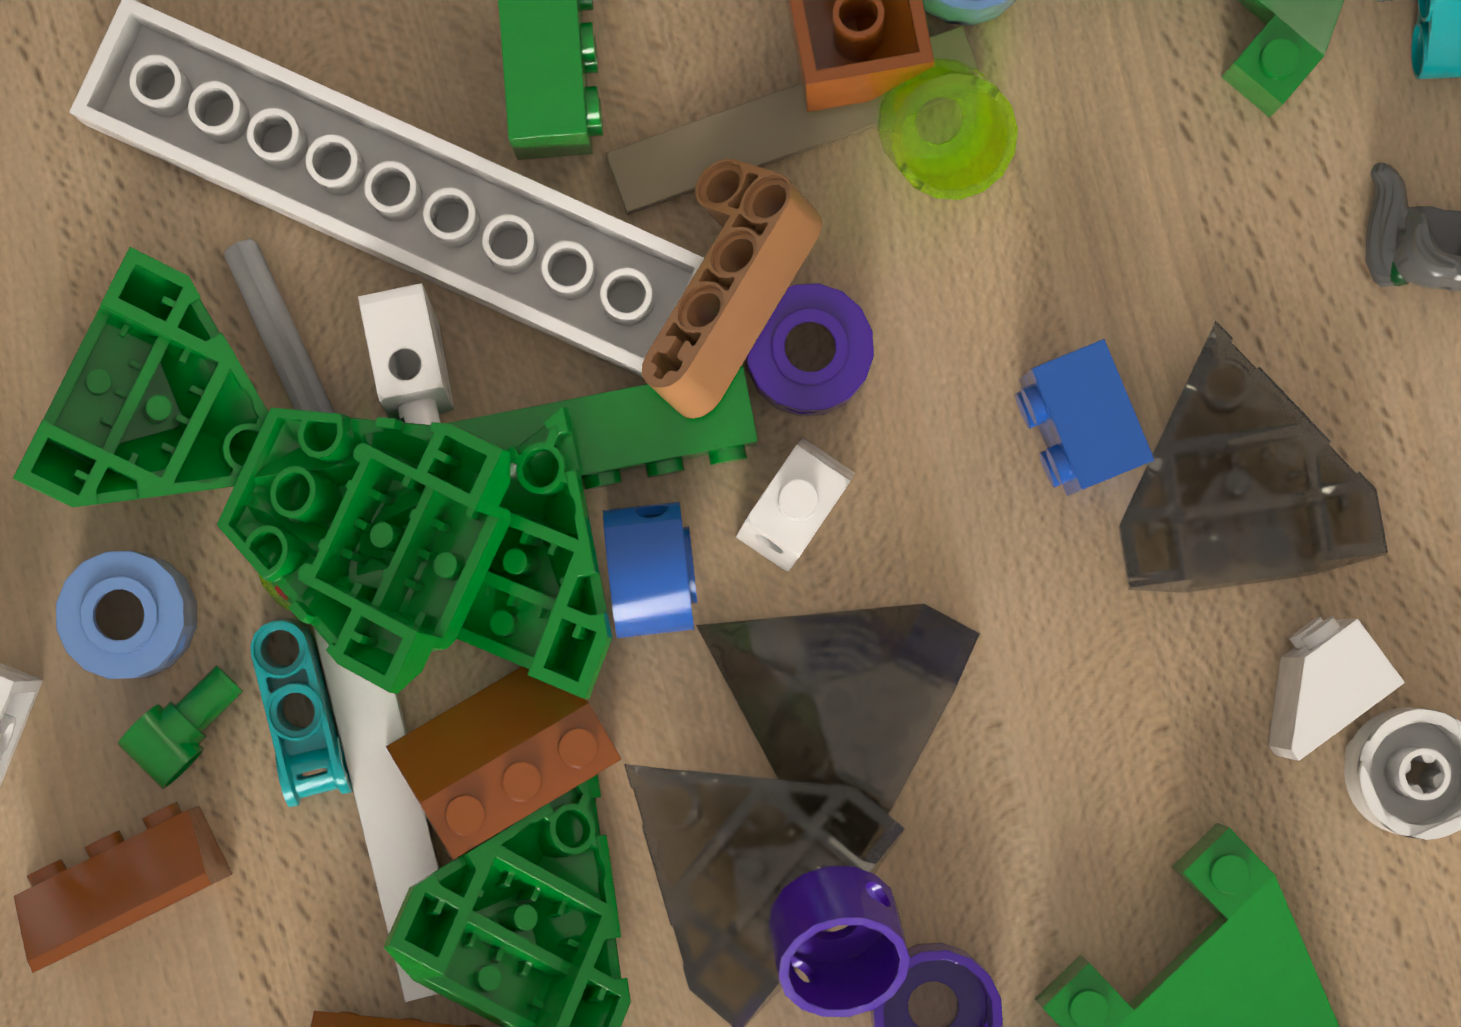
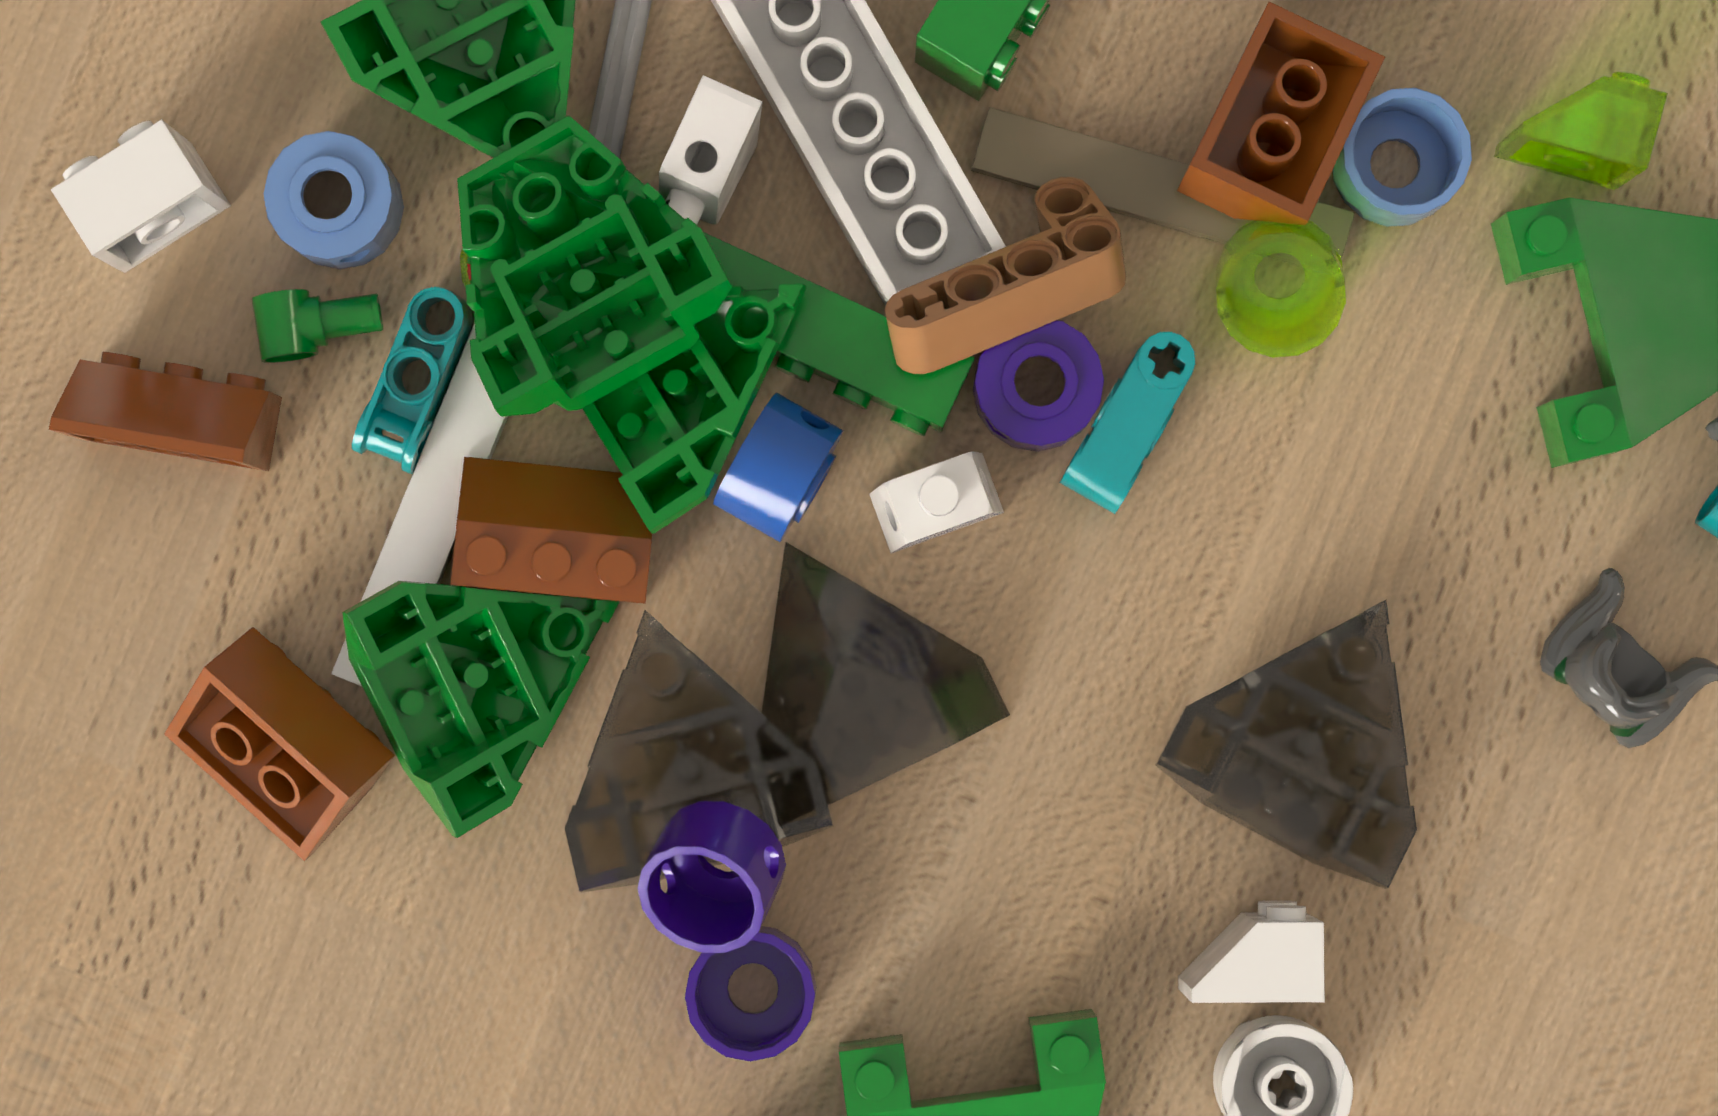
camera: 45 degrees right, 0 degrees up
(906, 328) = (1129, 424): none -> teal piece
(1083, 418) = (1219, 600): blue brick -> none

